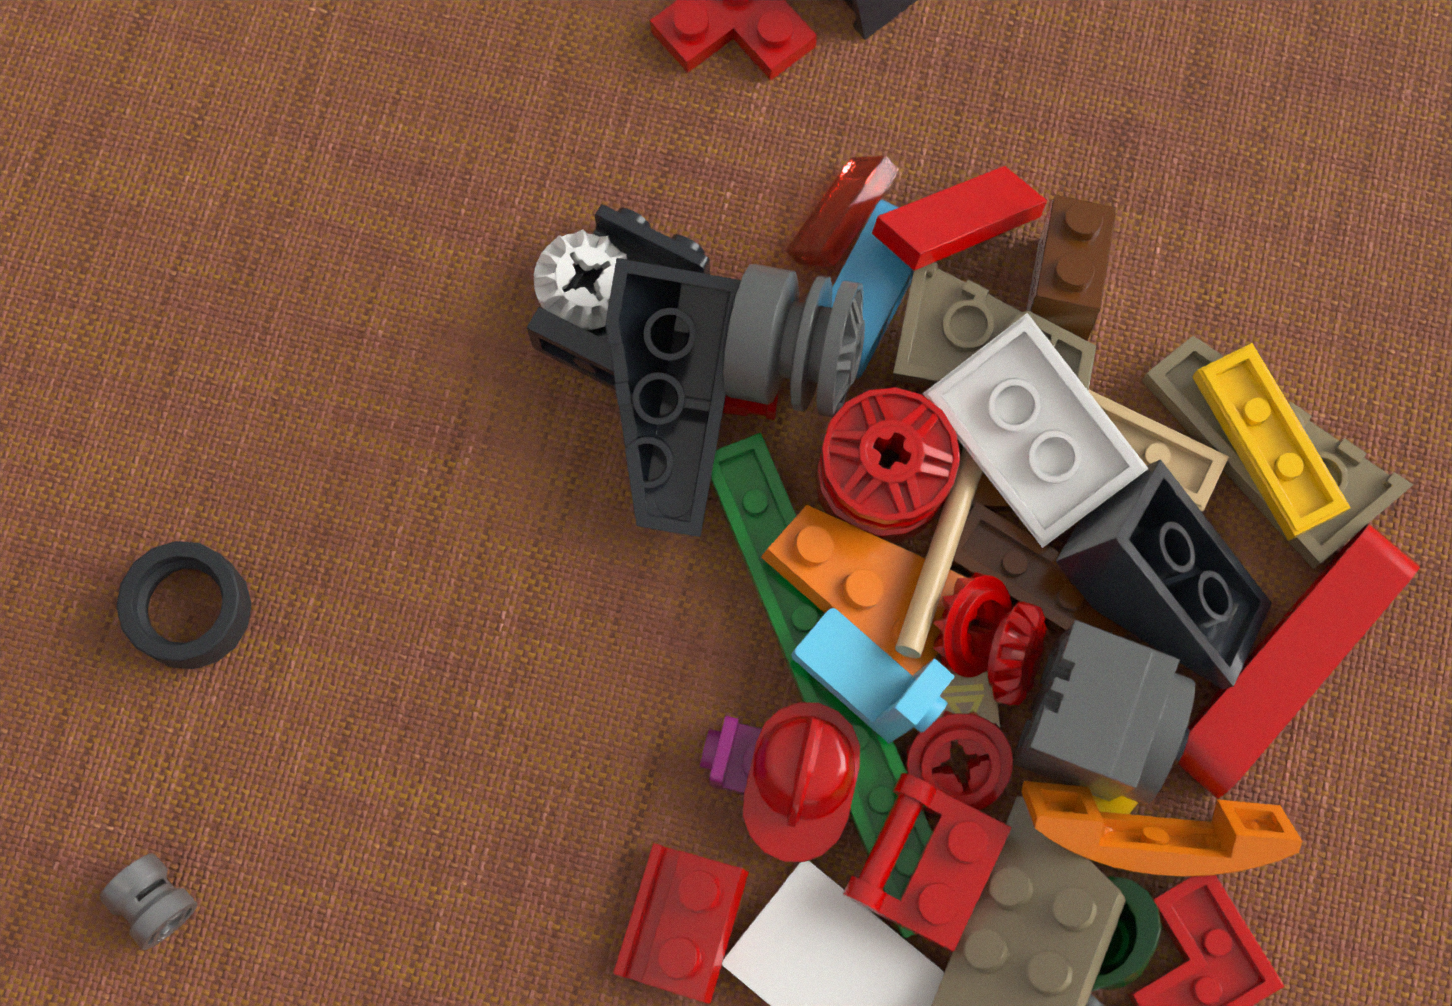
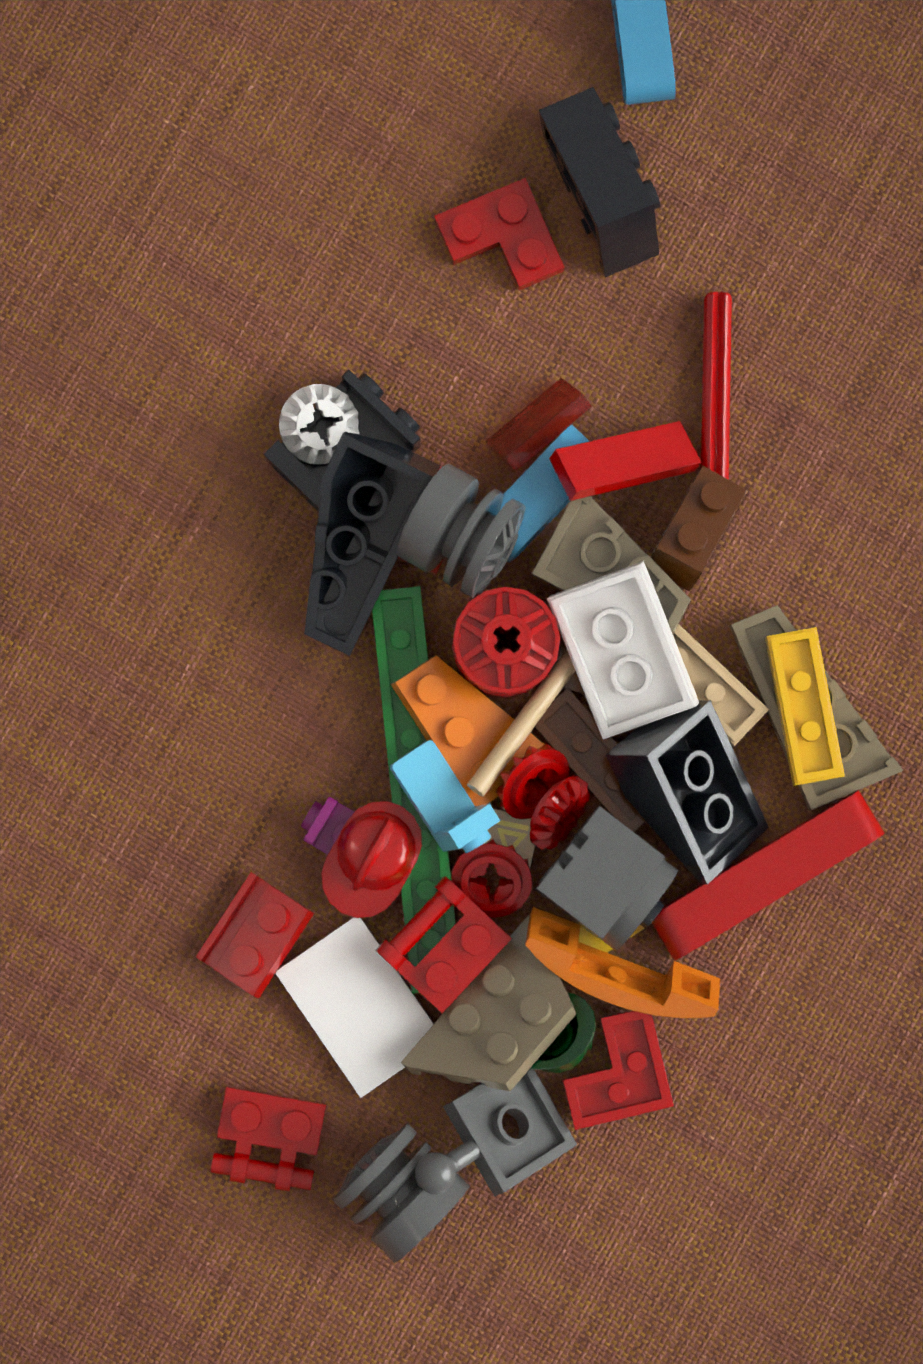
camera: 10 degrees right, 10 degrees up
(1030, 107) = (716, 382): none -> red axle

